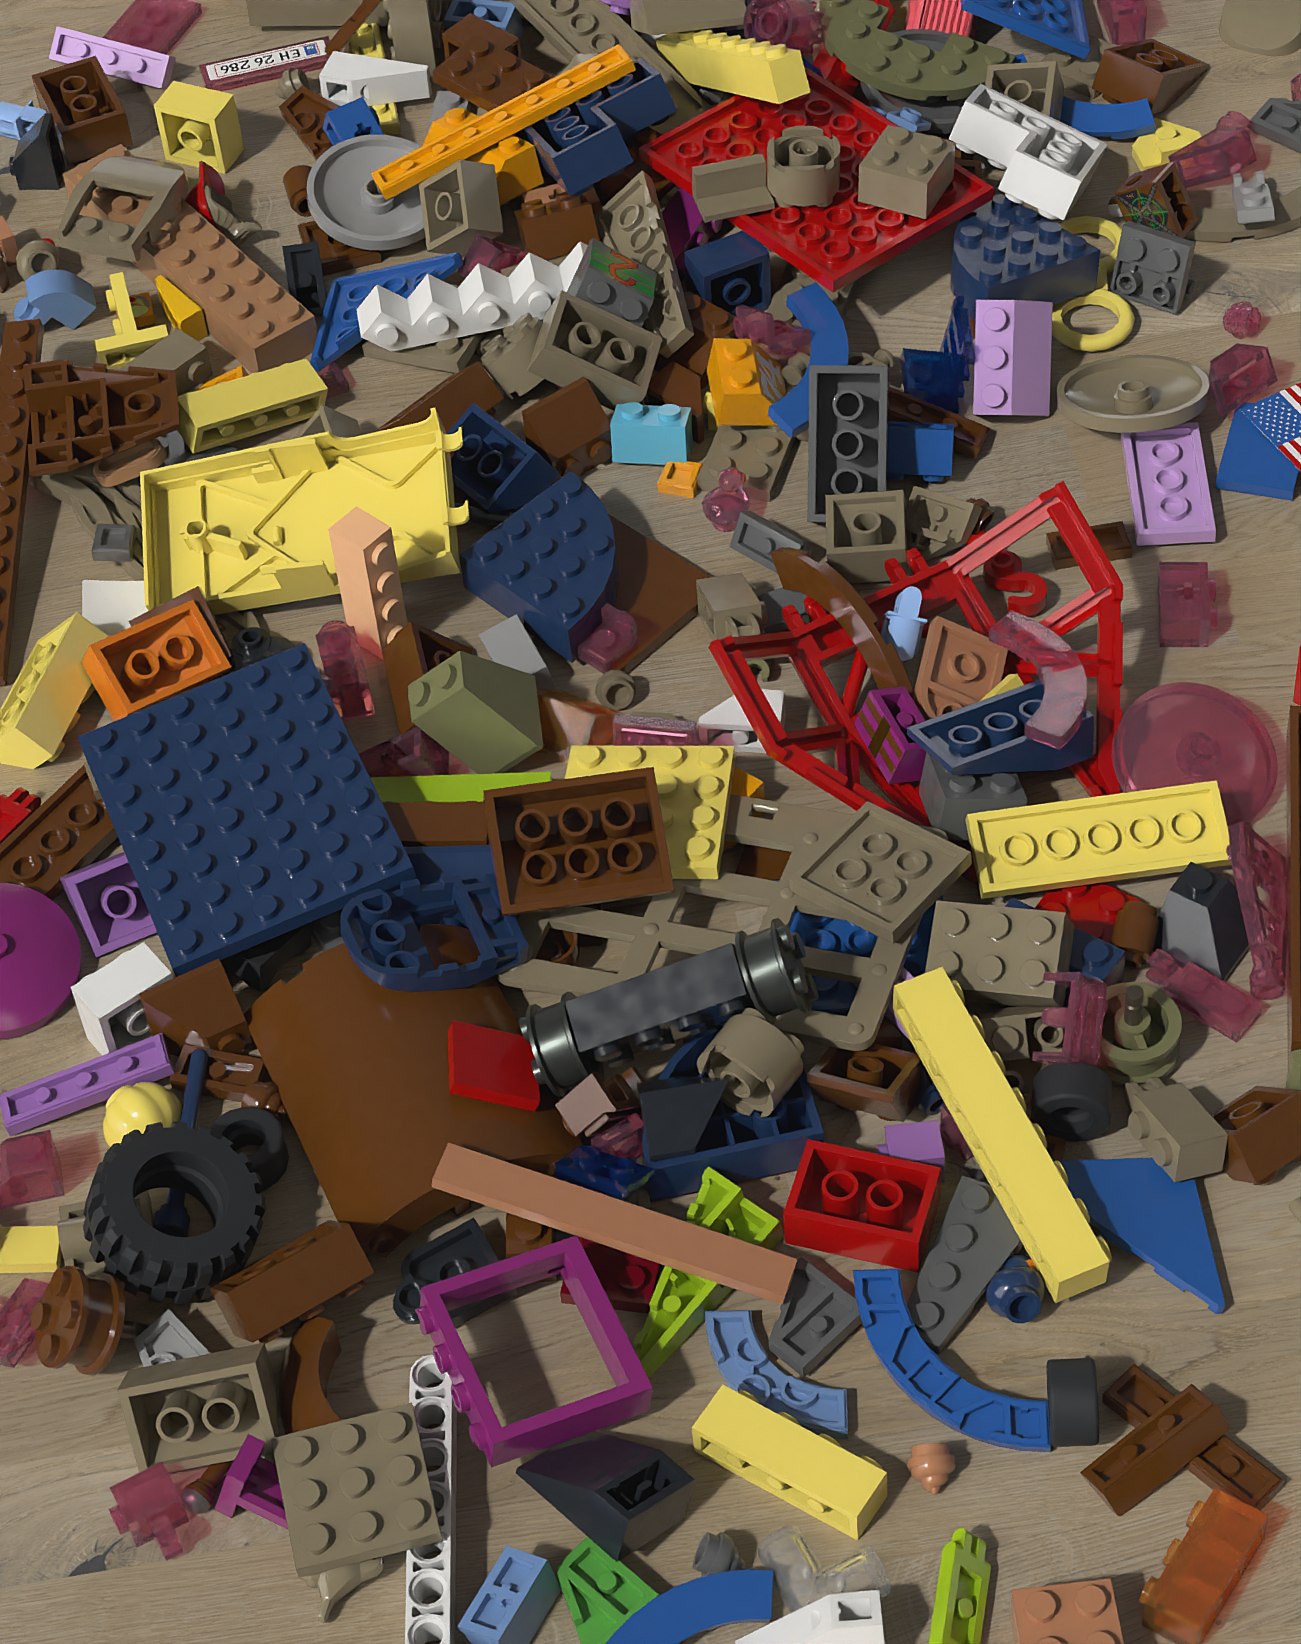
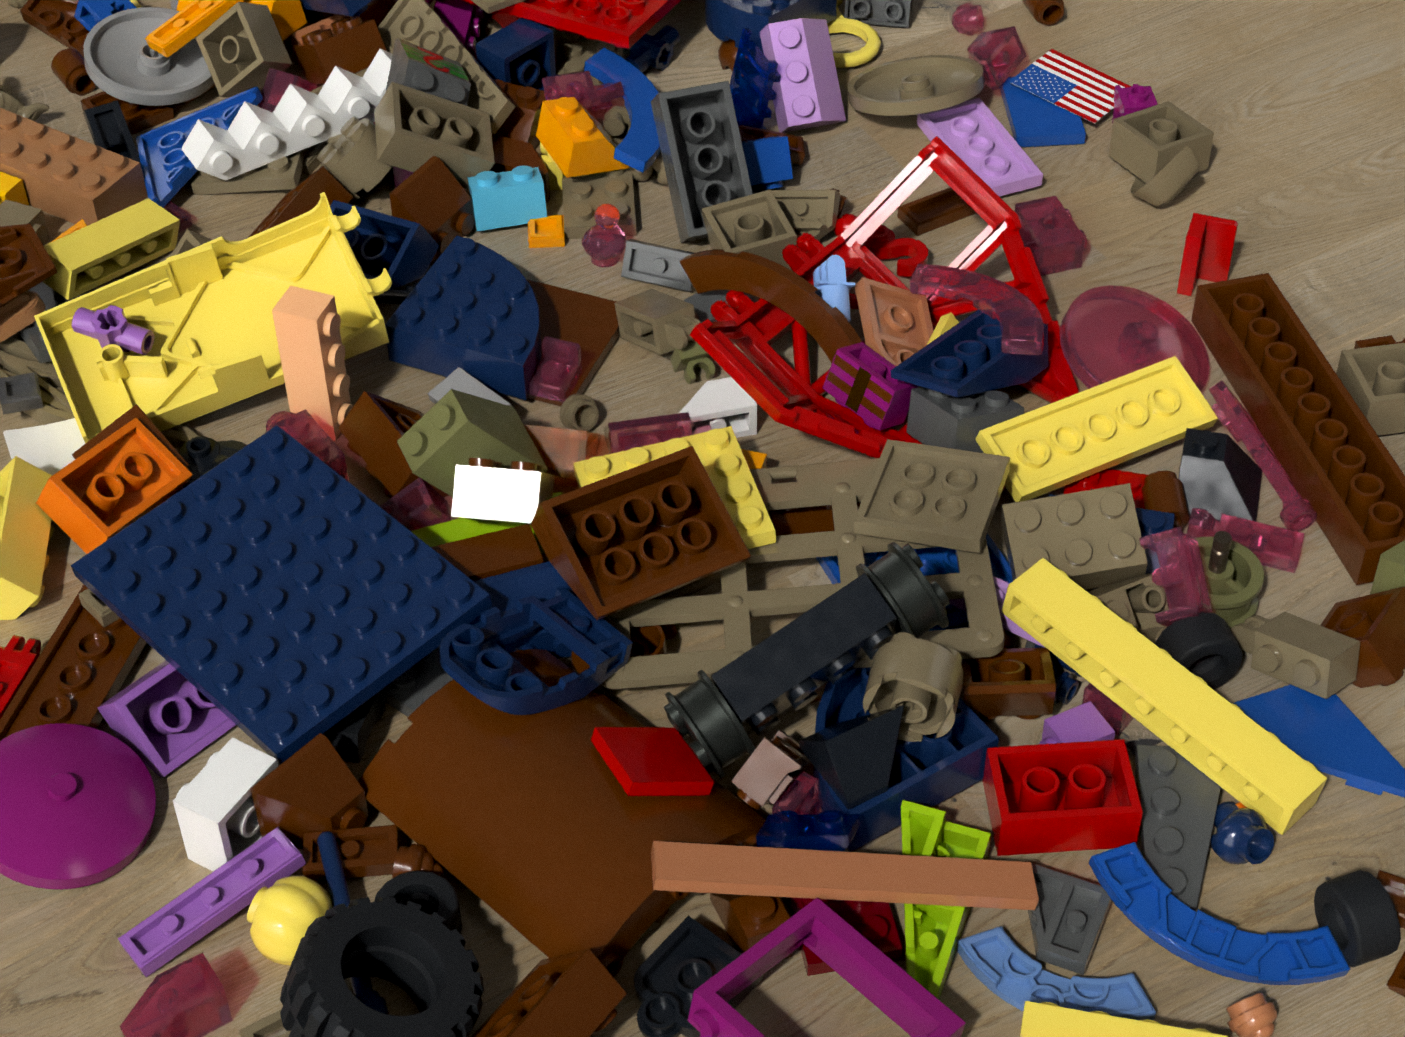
camera: 25 degrees left, 5 degrees down
(205, 503) = (112, 327): none -> medium lavender axle
(472, 762) = (500, 494): none -> brick
(882, 288) = (654, 50): none -> dark blue axle

